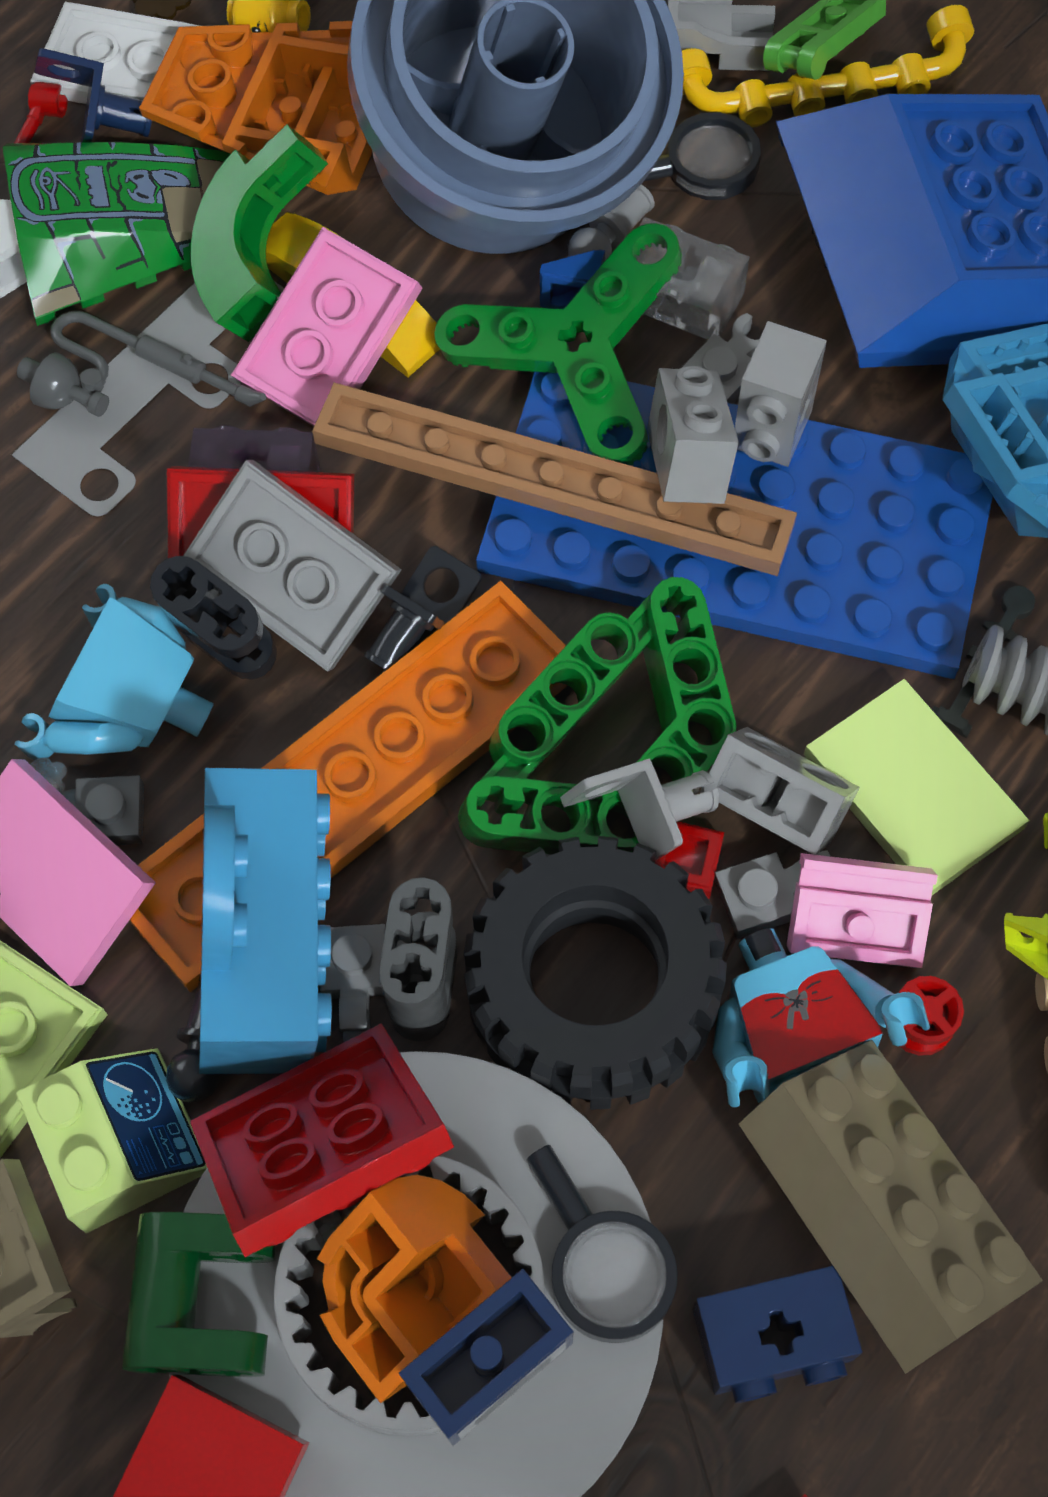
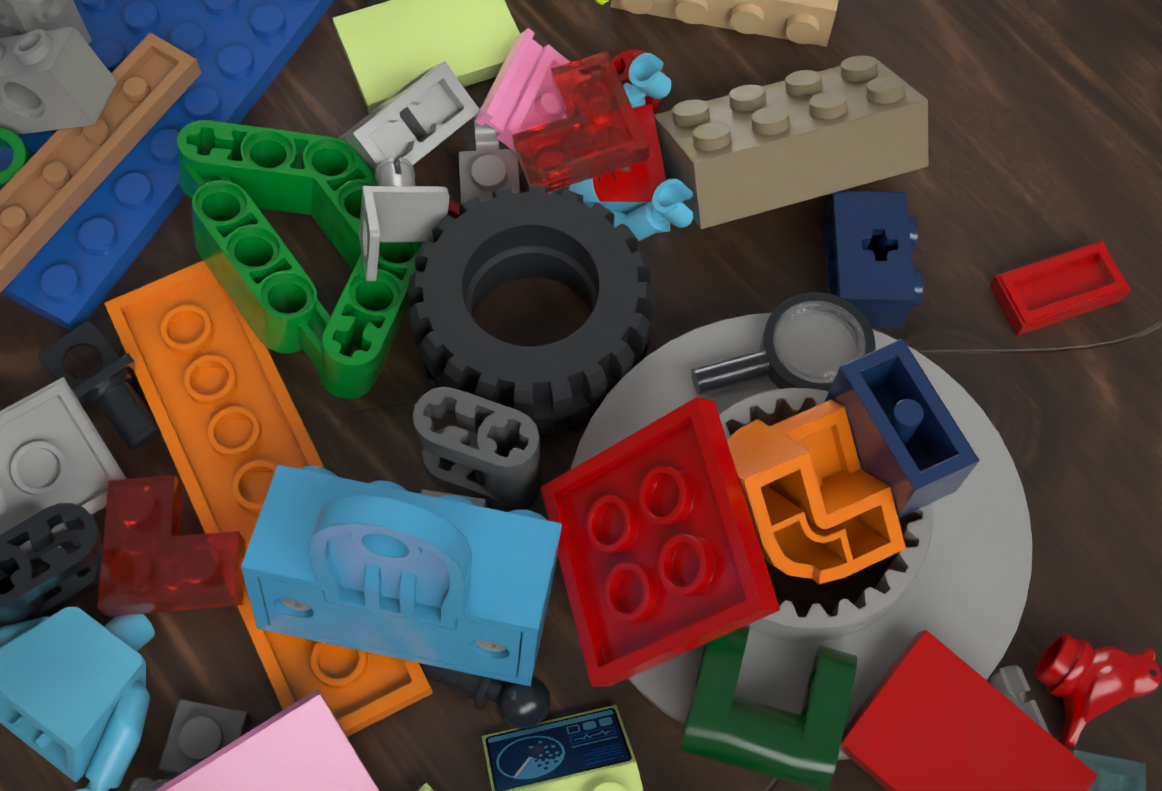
camera: 80 degrees left, 0 degrees up
(255, 698) = (152, 566): none -> clear red plate
(812, 981) = (593, 138): none -> clear red plate

